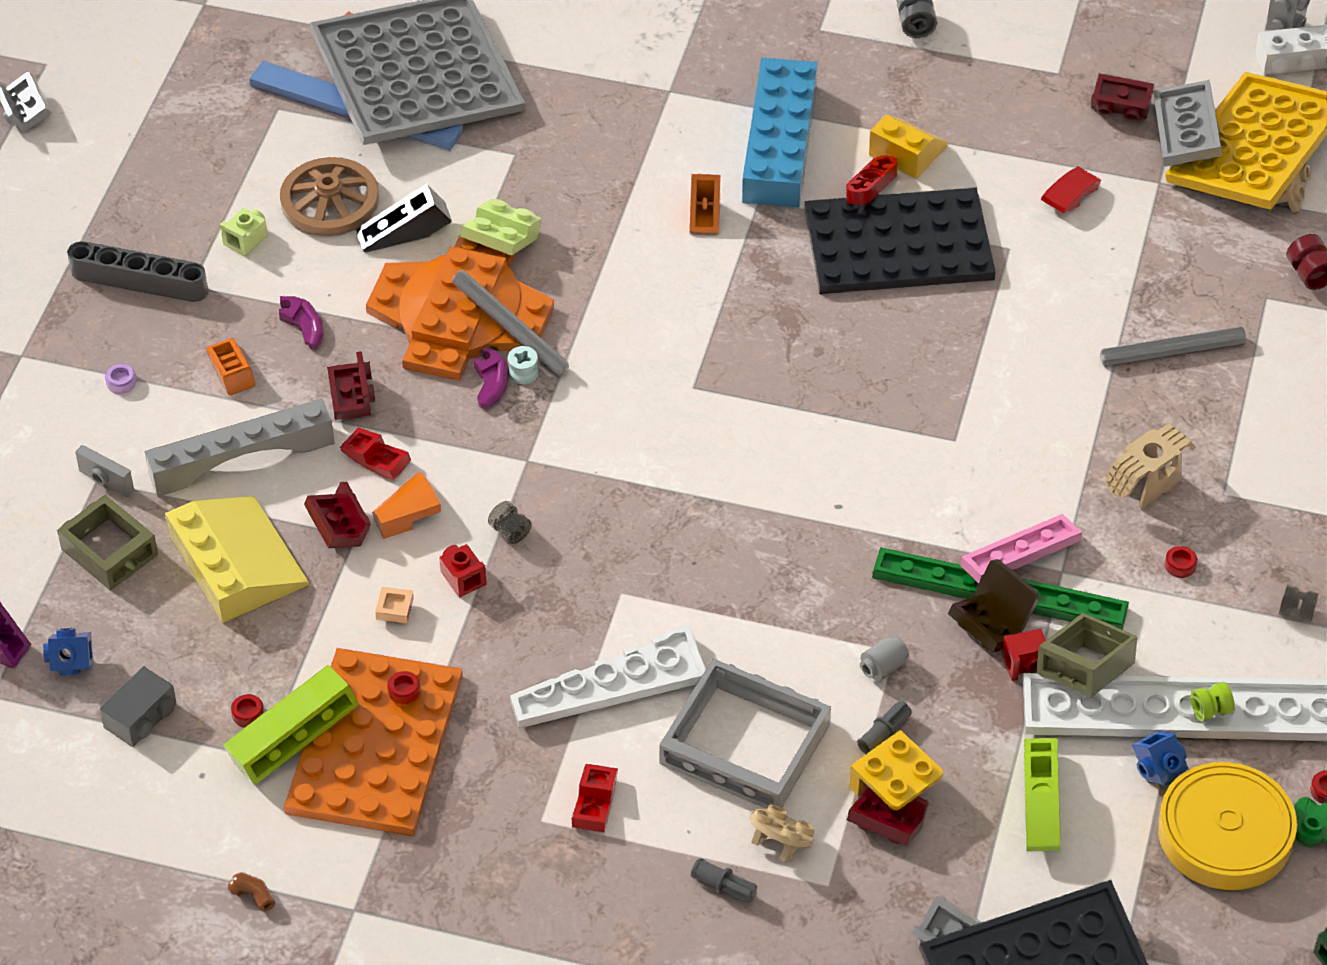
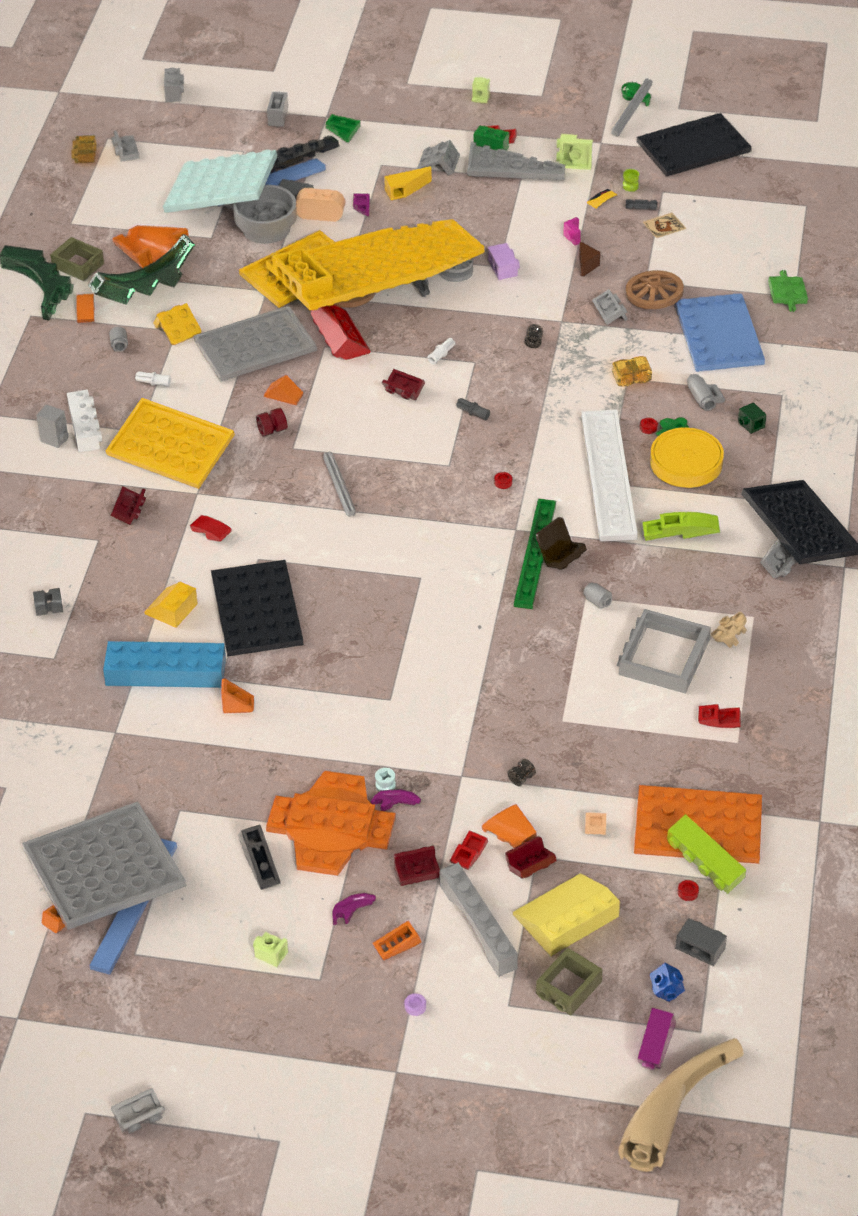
camera: 95 degrees left, 5 degrees down
(104, 470) = (506, 994): light grey plate -> none
(138, 271) = (316, 1006): dark grey beam -> none
(255, 886) = (819, 866): dark orange arm -> none
(329, 191) = (229, 904): medium nougat wheel -> none
(404, 687) = (665, 805): red tile -> none
(461, 563) = (563, 792): red brick -> none
(502, 227) = (264, 799): yellowish green plate -> none
(510, 322) = (355, 783): light grey axle -> none
(653, 669) = (631, 708): white wing -> none
(724, 880) = (765, 655): dark grey axle -> none
(871, 180) = (222, 617): red beam -> none
(874, 815) = (706, 588): dark red bracket -> none
(884, 727) = (645, 594): dark grey axle -> none
(895, 771) = (681, 582): yellow bracket -> none
(1021, 652) = (584, 534): red brick -> none
(1023, 546) = (510, 539): bright pink plate -> none
(1085, 676) = (596, 519): olive window -> none
(1142, 459) = (450, 479): tan piece -> none
(1160, 758) = (650, 480): blue brick -> none
(1187, 123) = (158, 471): light grey plate -> none
(1212, 701) = (612, 456): lime wheel -> none
(1291, 602) = (530, 431): clear smoke wheel -> none

